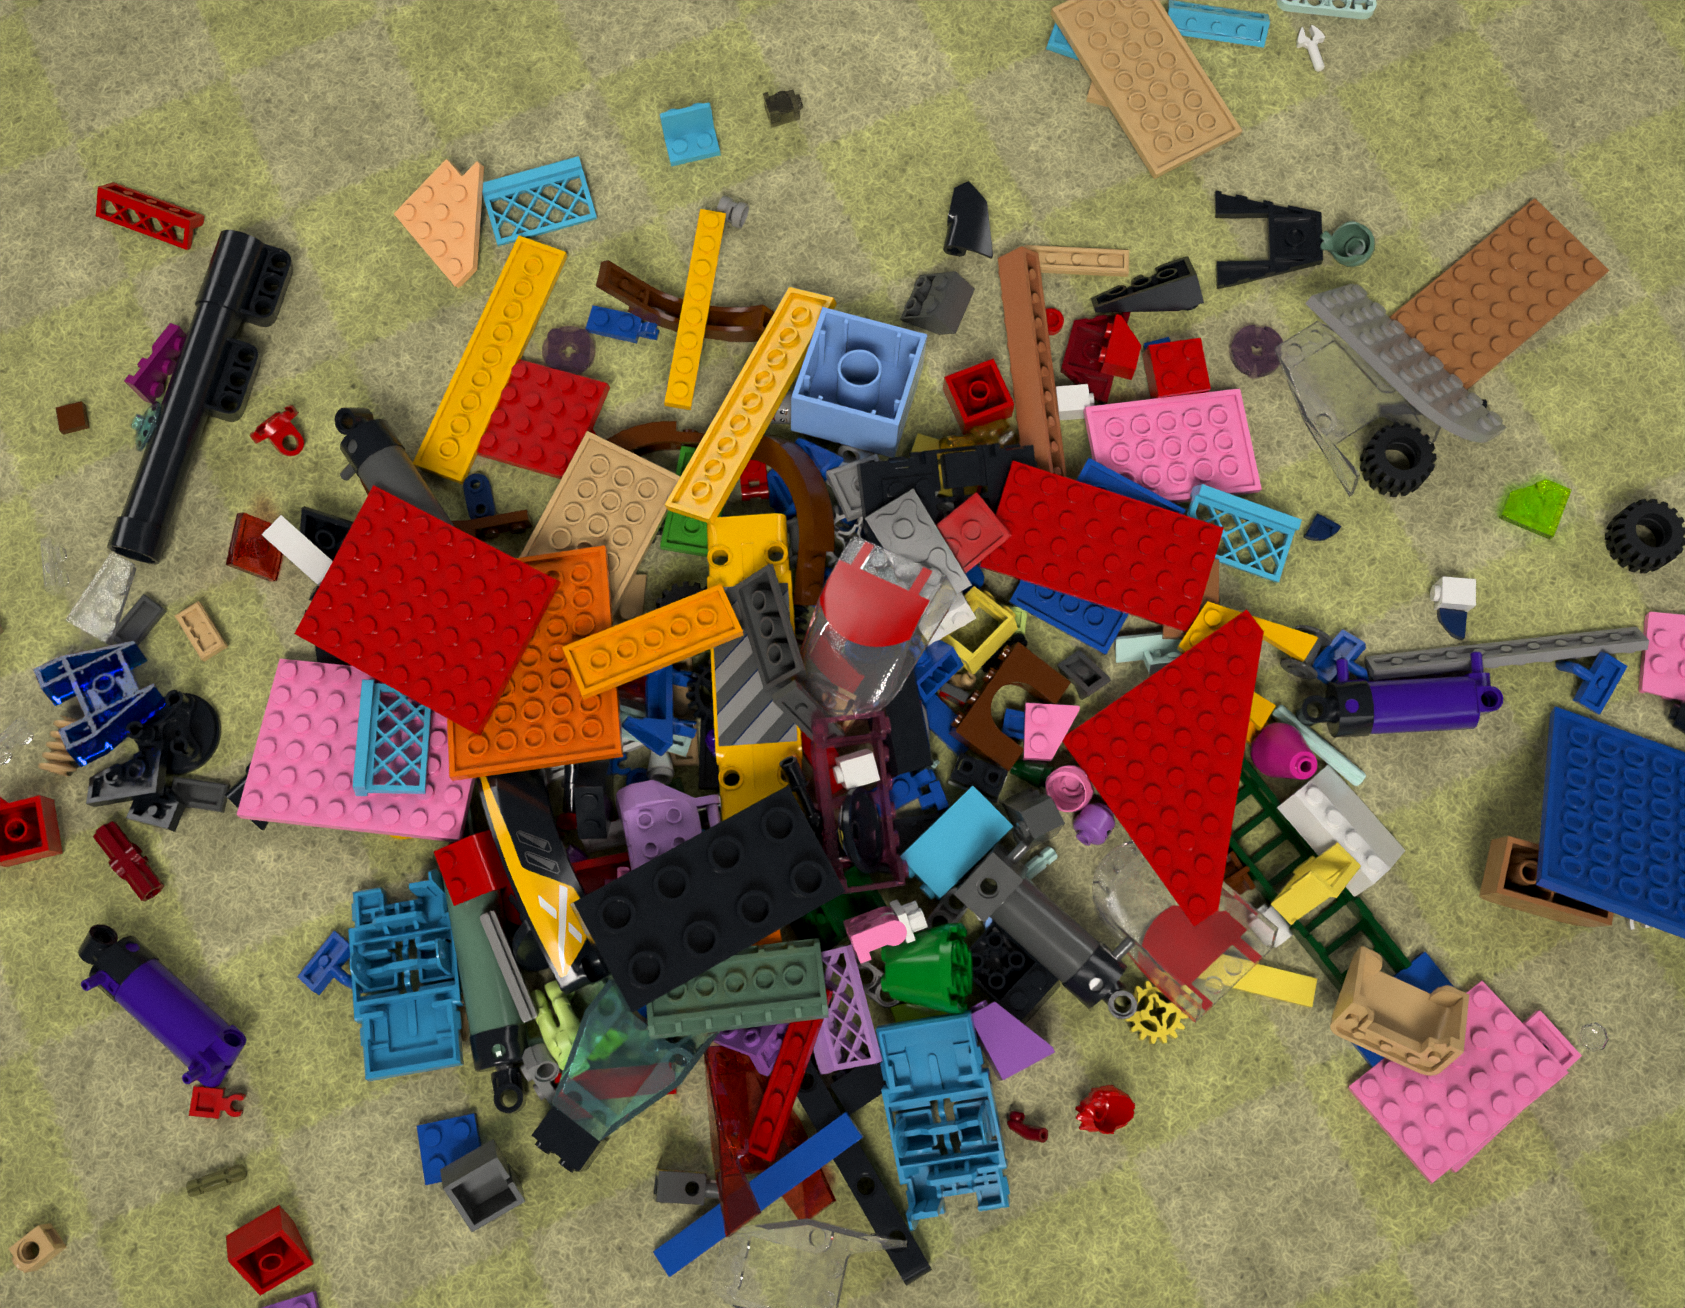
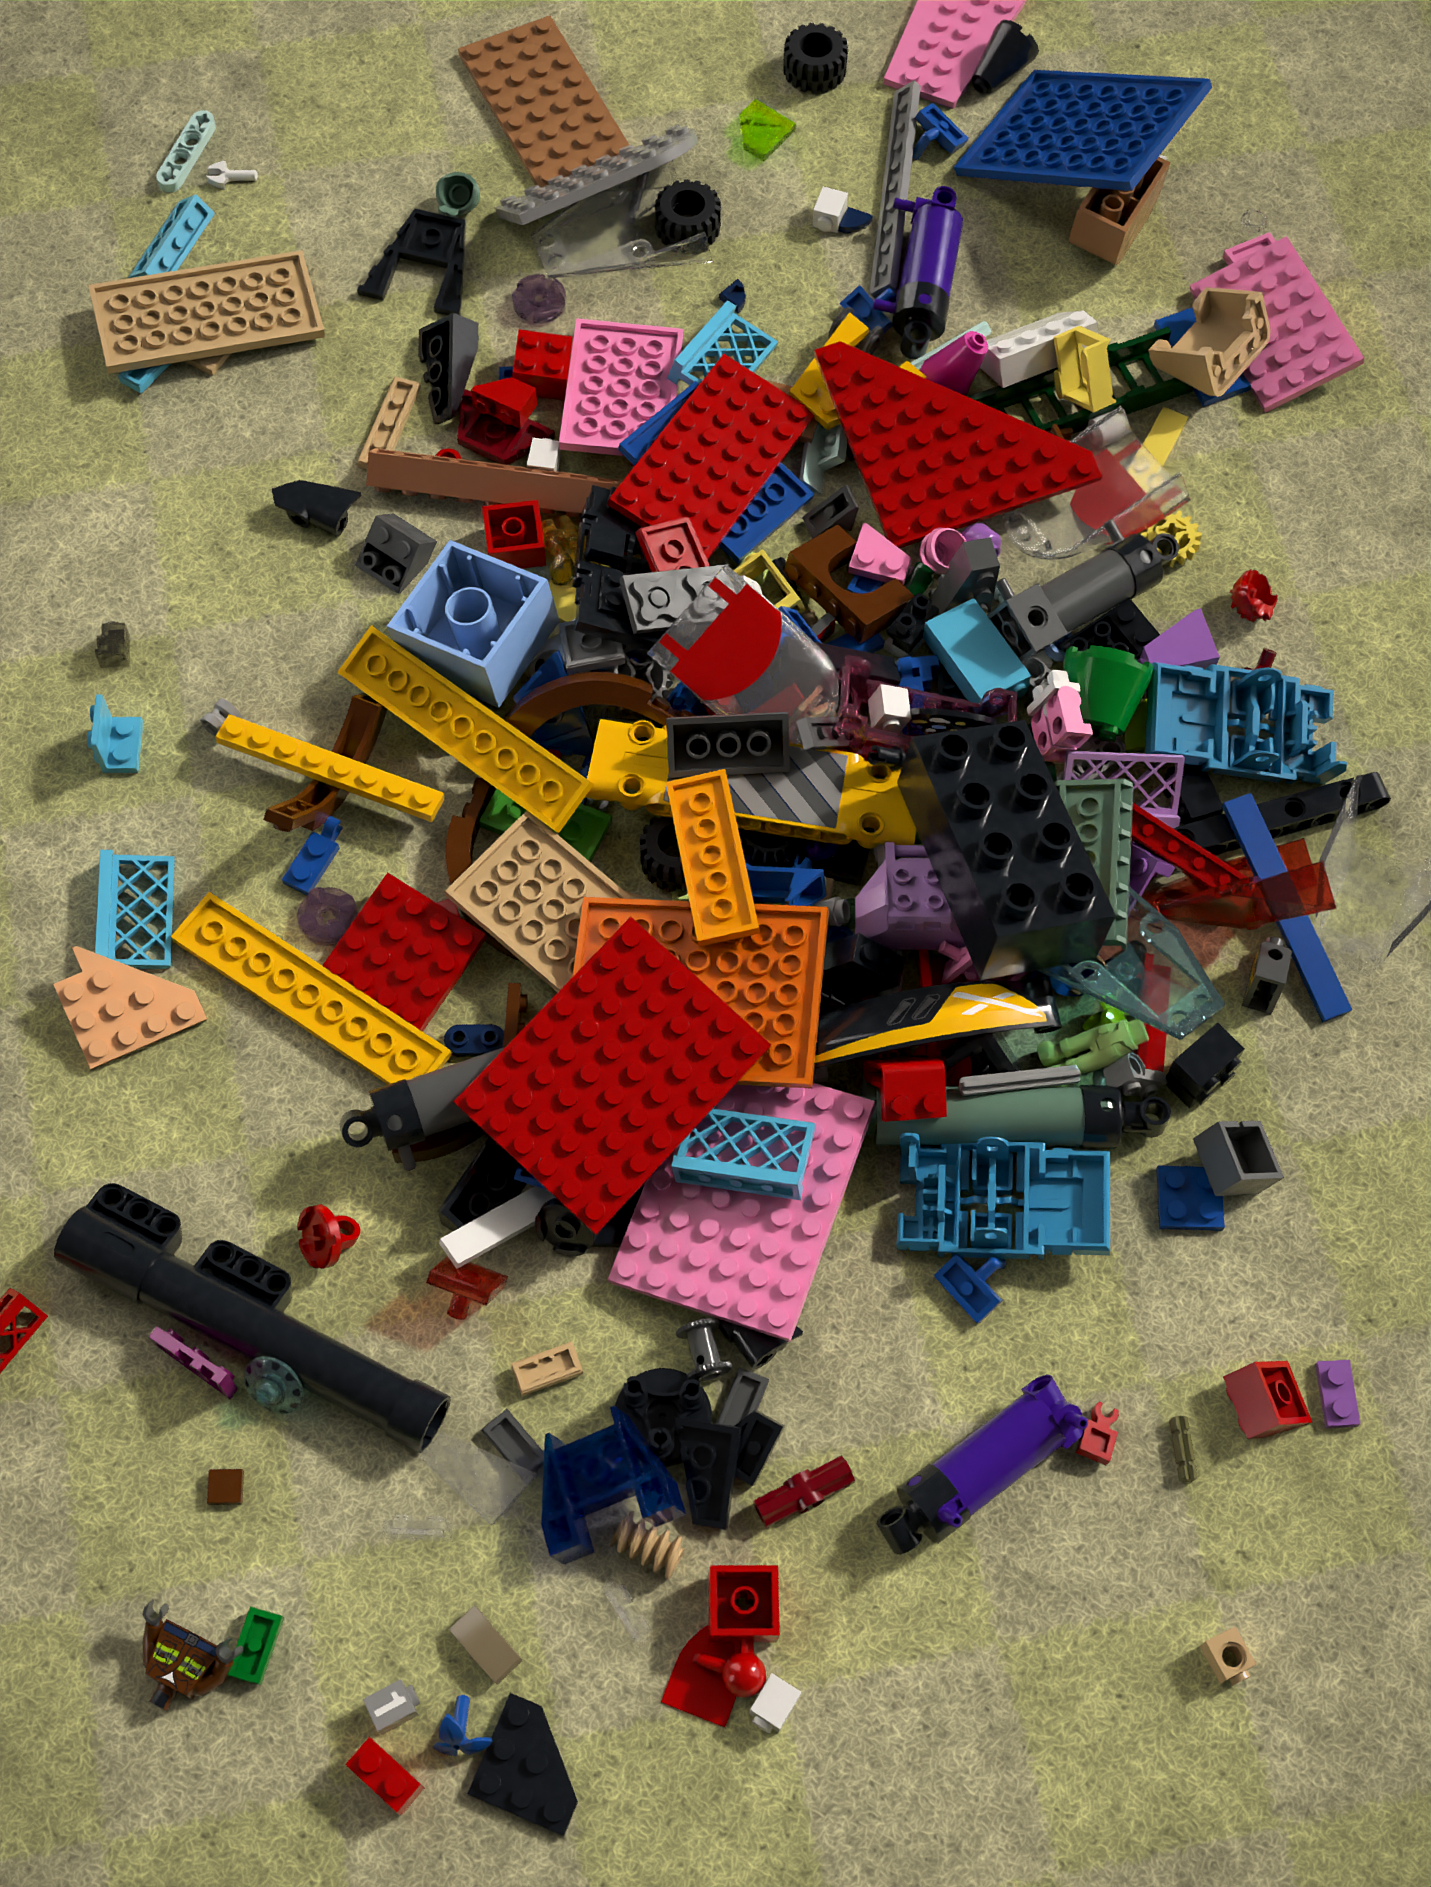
camera: 80 degrees left, 10 degrees down
(230, 751) = (704, 1349): none -> dark grey hose

